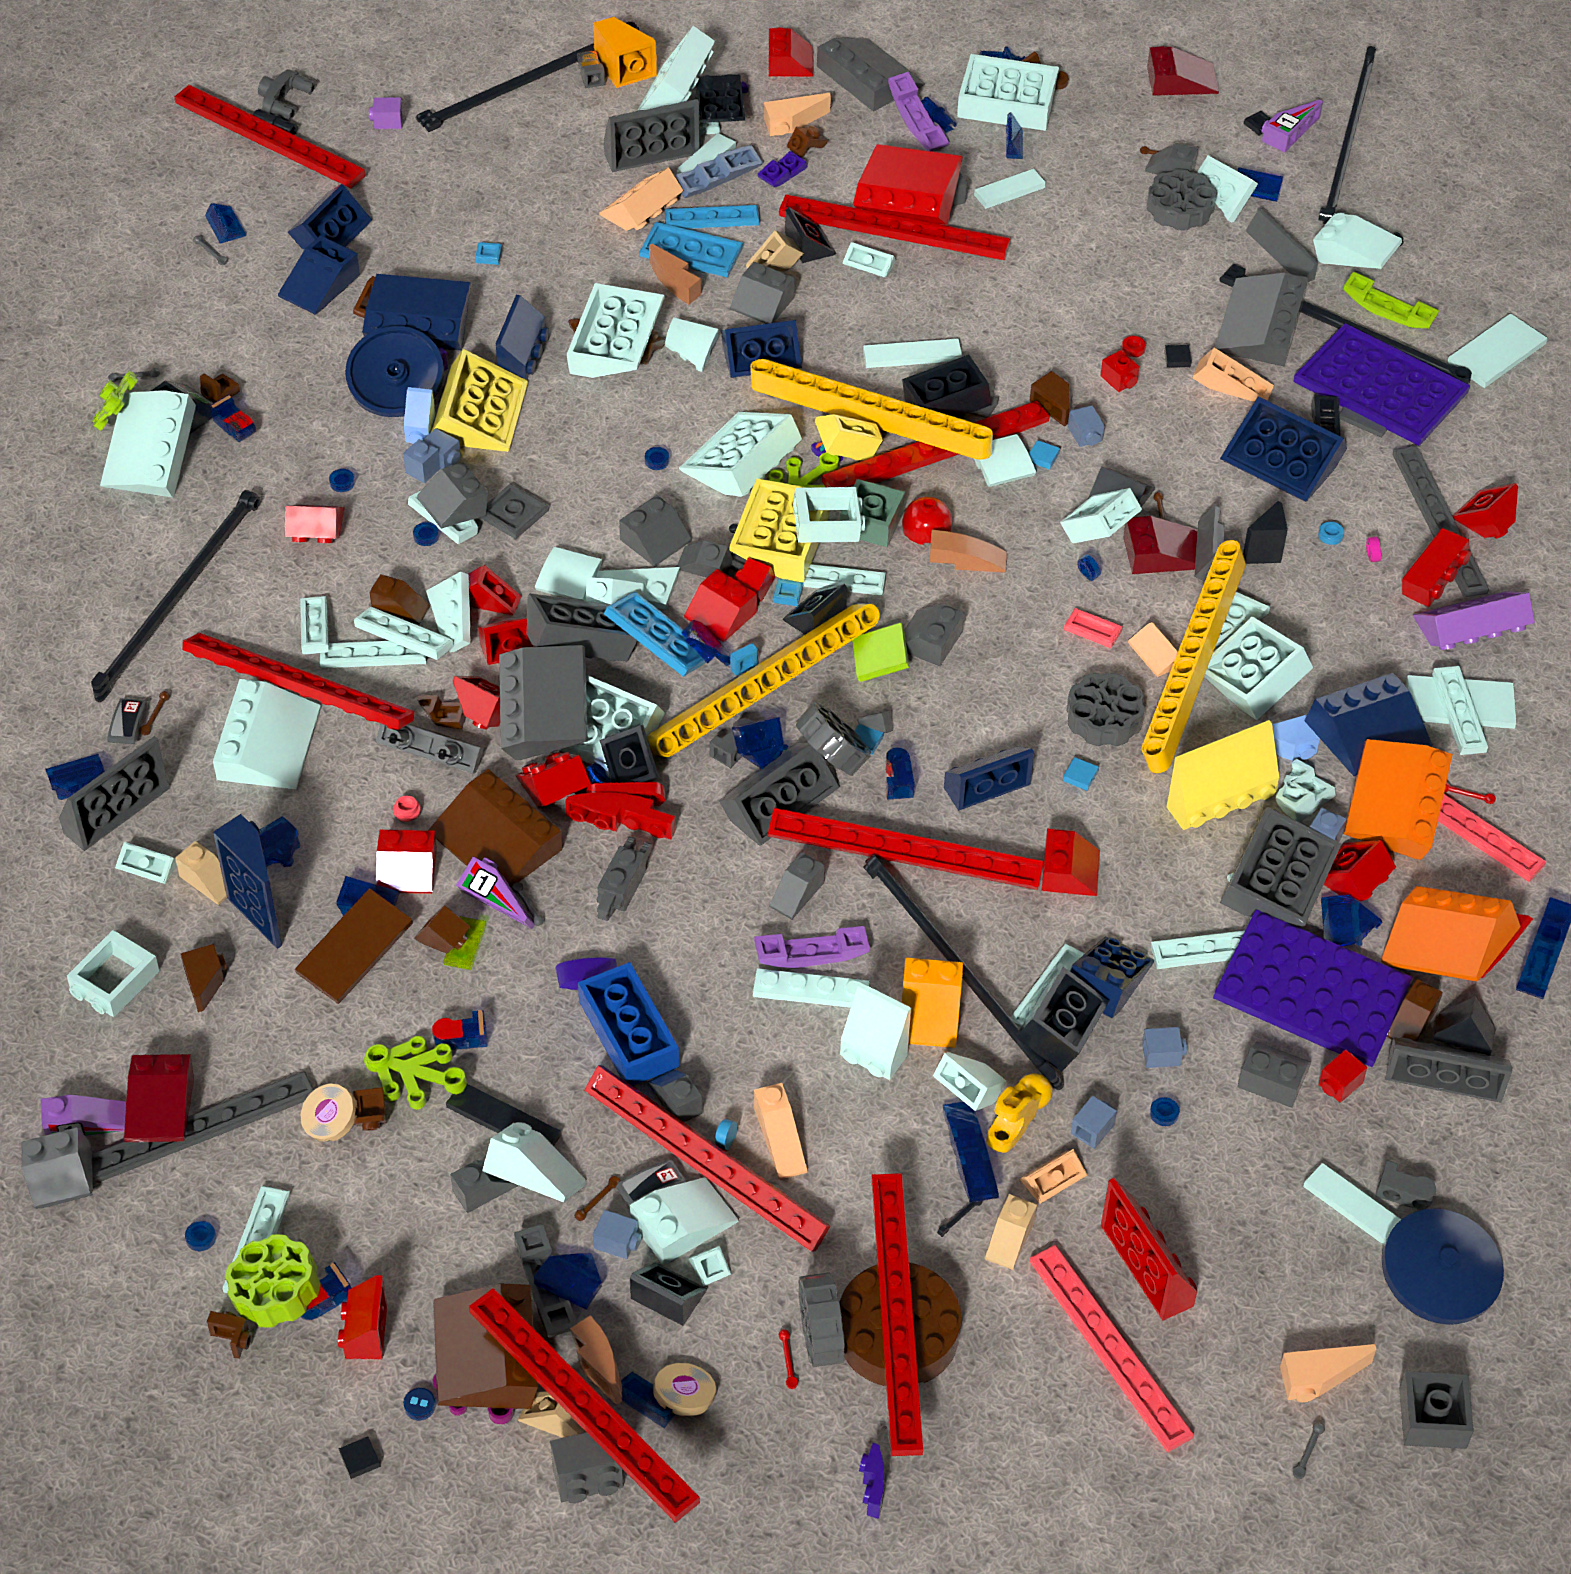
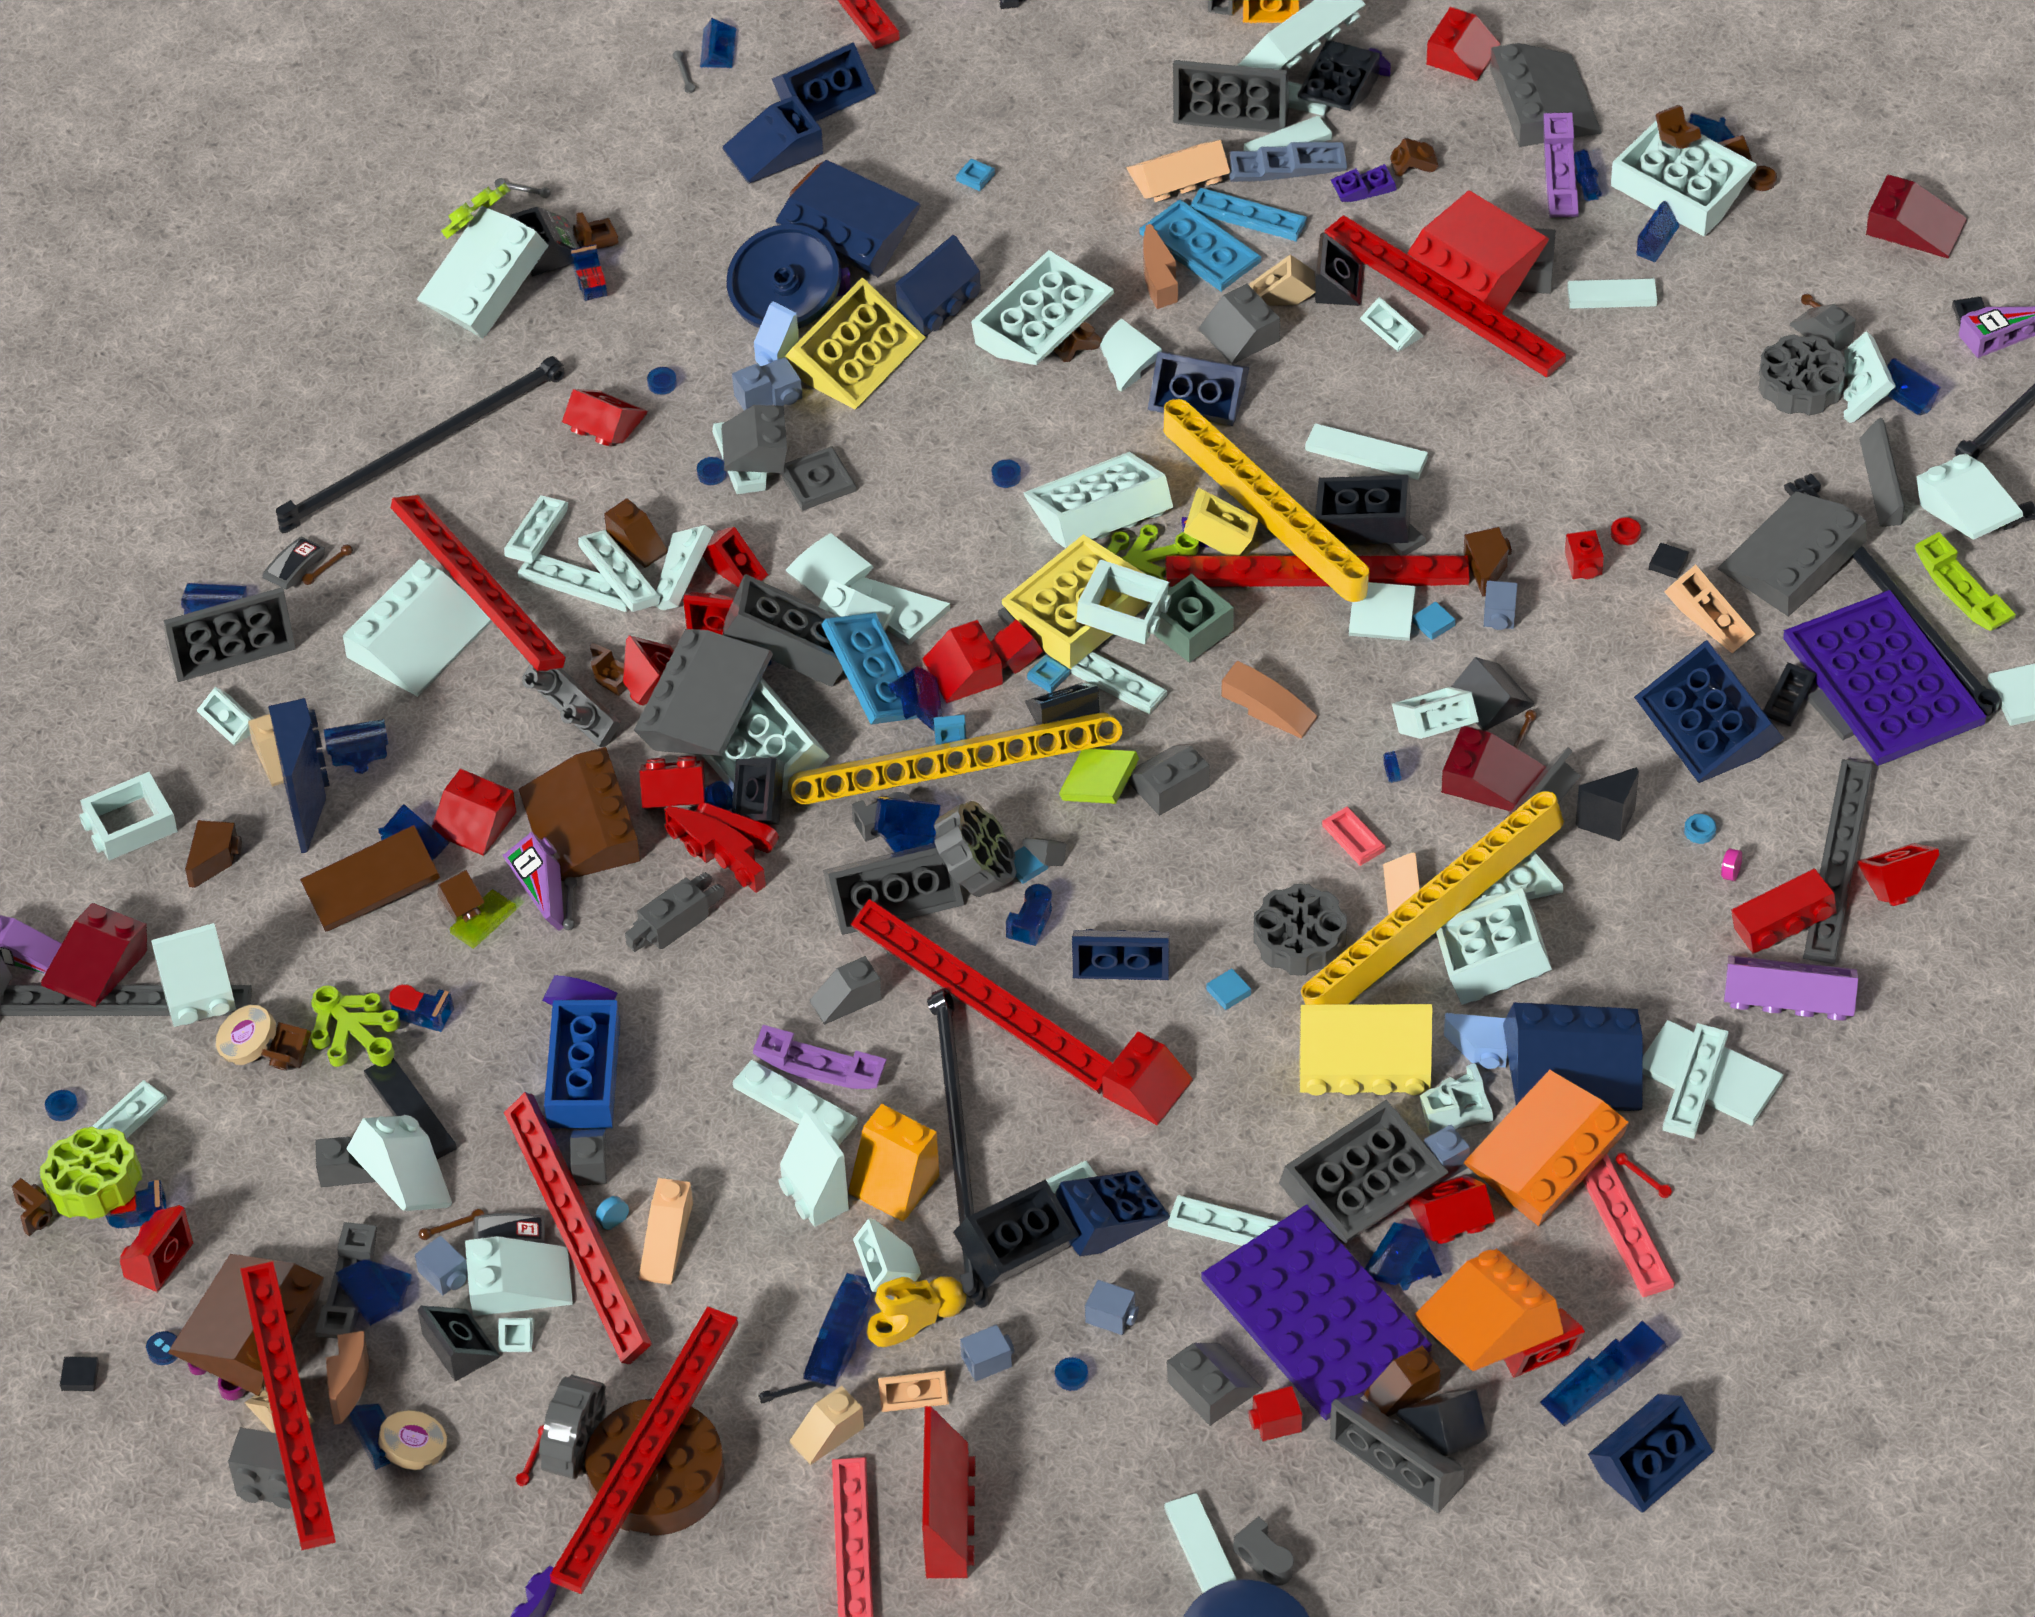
camera: 30 degrees right, 0 degrees up
(265, 1080) = (193, 975): none -> light aqua slope
(406, 808) = (510, 758): coral plate -> none
(654, 531) = (946, 553): dark grey slope -> none
(704, 558) = (980, 603): dark grey slope -> none
(786, 114) = (1421, 119): light nougat slope -> none
(924, 516) = (1251, 644): red cylinder -> none
(990, 60) = (1674, 128): none -> reddish brown bracket

